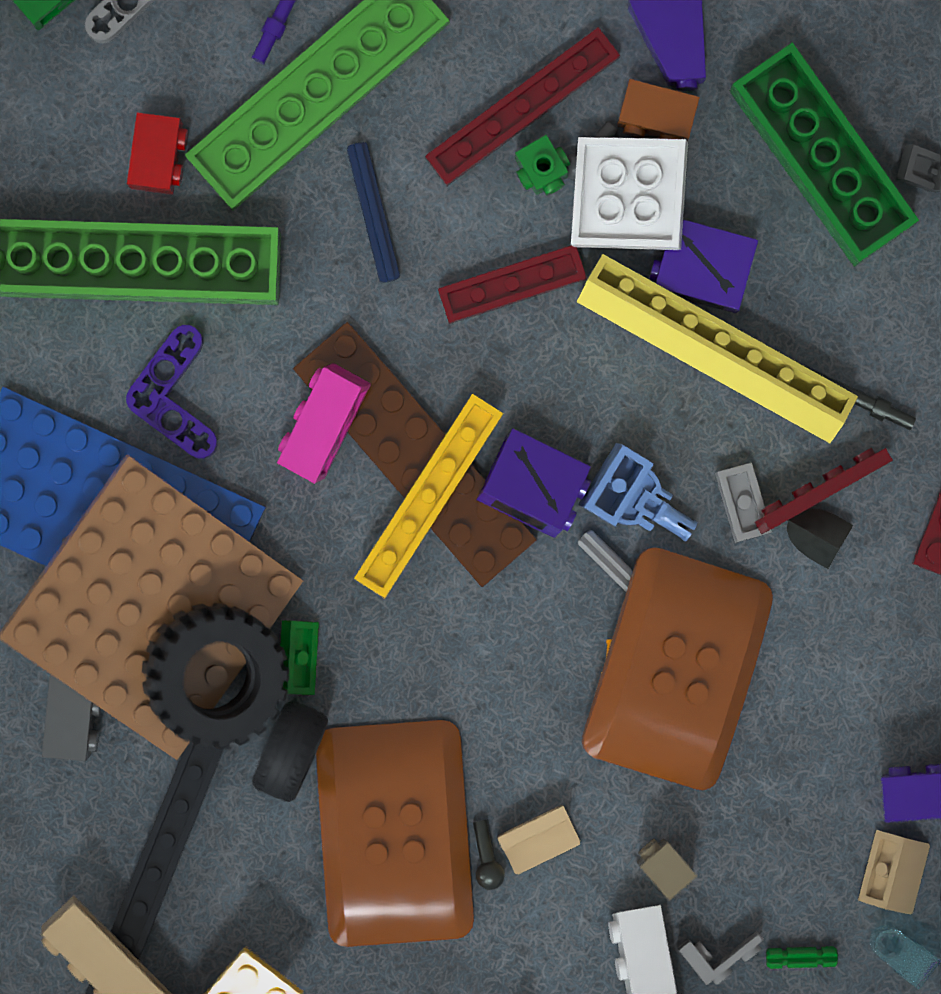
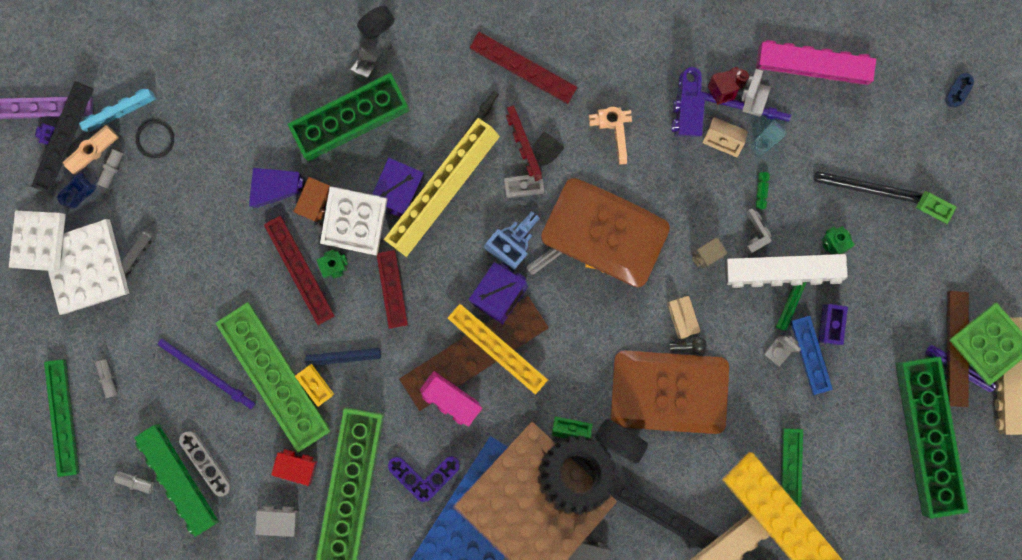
camera: 85 degrees left, 0 degrees up
(52, 136) = (277, 522): none -> light grey brick
(313, 167) = (314, 385): none -> yellow plate
(890, 630) = (622, 116): none -> light nougat piece

